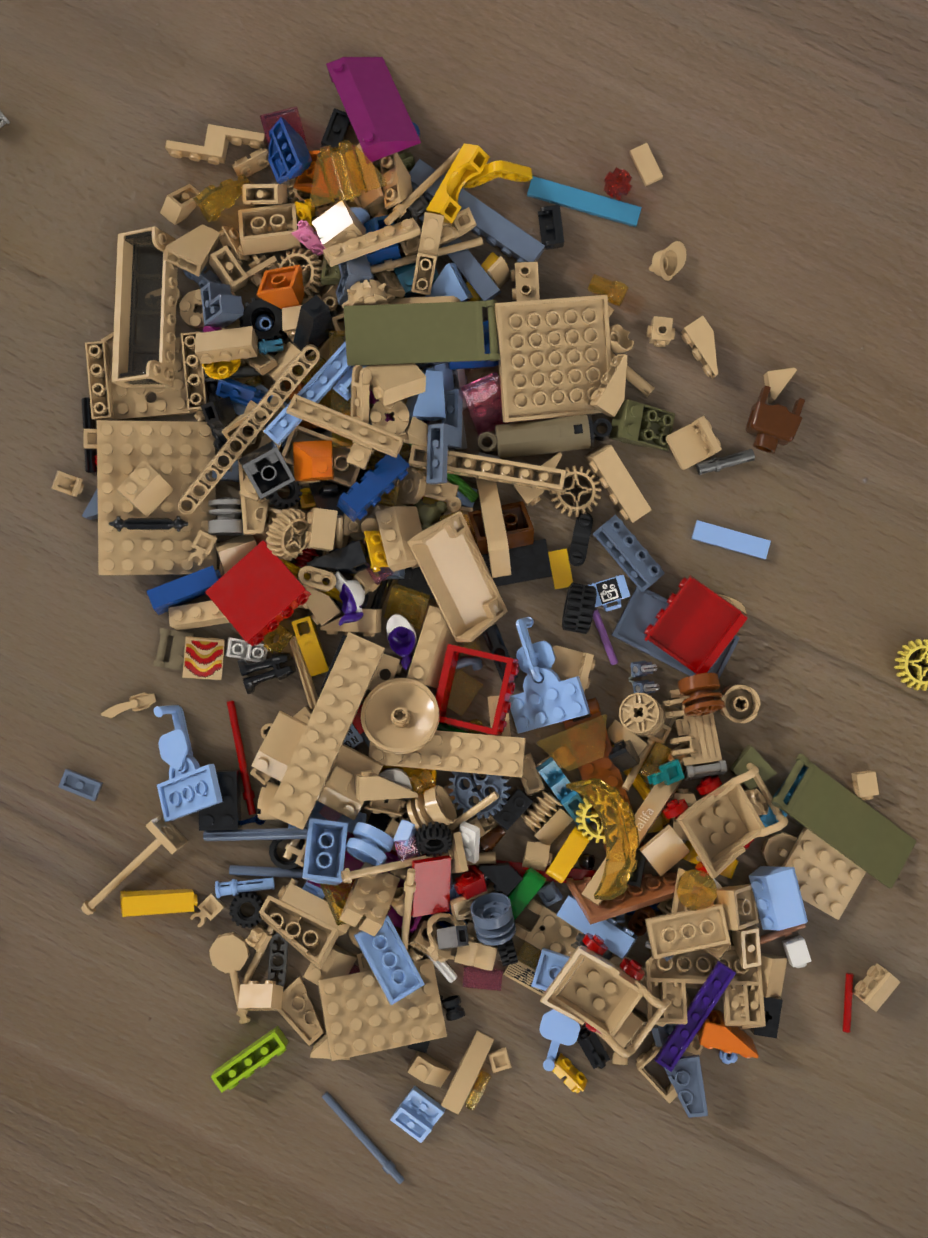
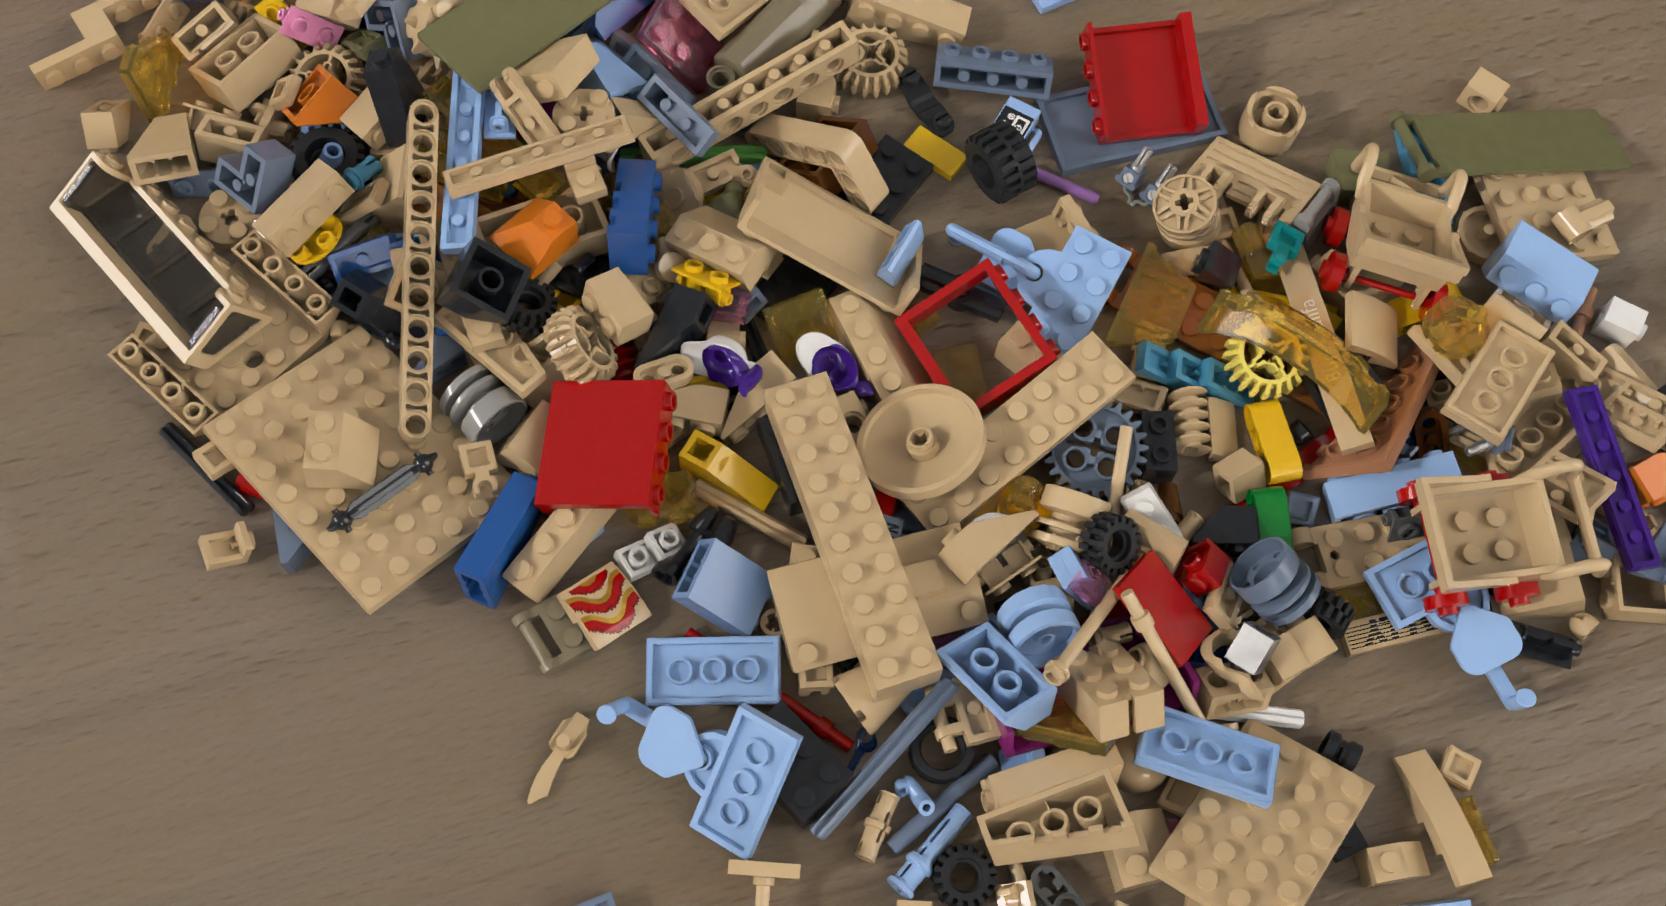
camera: 50 degrees left, 20 degrees down
(224, 729) = (713, 671): none -> light blue tile
(232, 856) = (877, 826): none -> tan pin
(257, 699) = (724, 587): none -> medium blue brick
(261, 859) = (916, 793): none -> light blue arm
(271, 266) = (285, 92): none -> tan tile
(467, 661) = (936, 330): sand blue arm -> none
(482, 979) = (1332, 685): clear pink tile -> none
(484, 612) = (901, 253): none -> light blue slope
(575, 1079) = (1566, 703): yellow hinge -> none
(701, 695) = (1226, 134): dark orange wheel -> none
(827, 891) = (1579, 221): none -> tan piece

